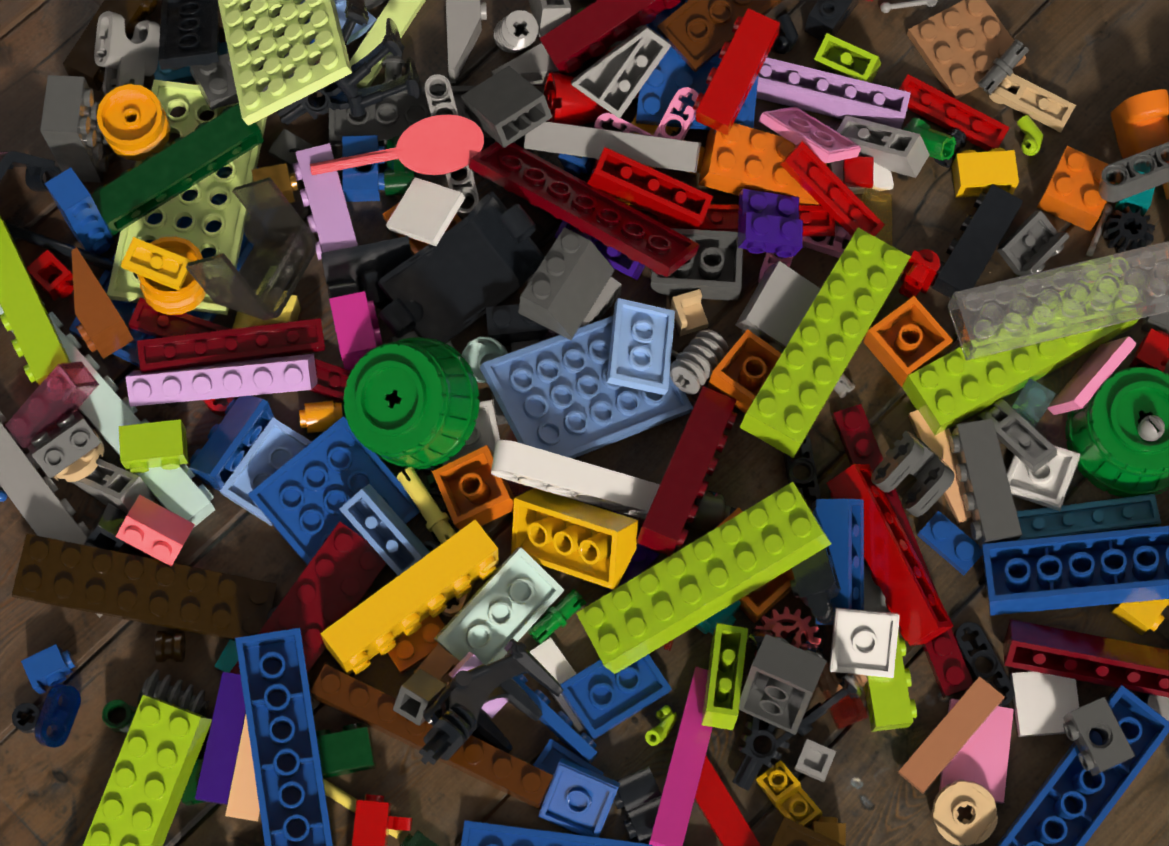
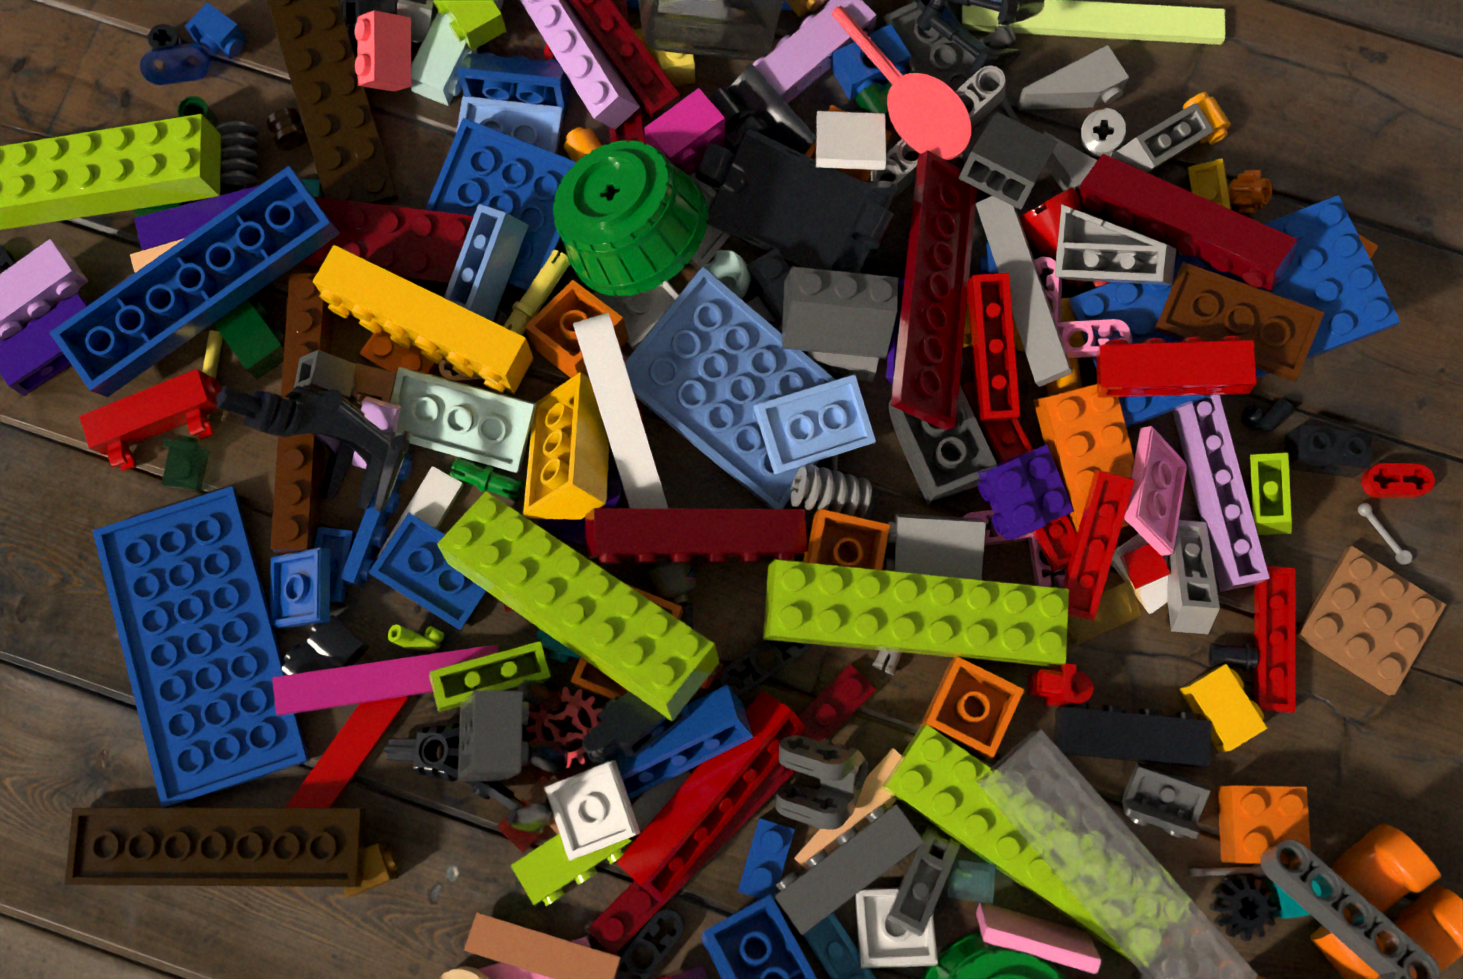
camera: 65 degrees right, 5 degrees up
(689, 312) = (884, 459): tan panel -> none
(788, 796) = (401, 807): yellow slope -> none
(815, 760) = (451, 816): light grey plate -> none
(938, 144) = (1225, 635): green piece -> none
(1003, 67) = (1364, 671): dark grey pin -> none
(1033, 102) = (1344, 725): tan plate -> none
(1033, 136) = (1299, 745): lime arm -> none

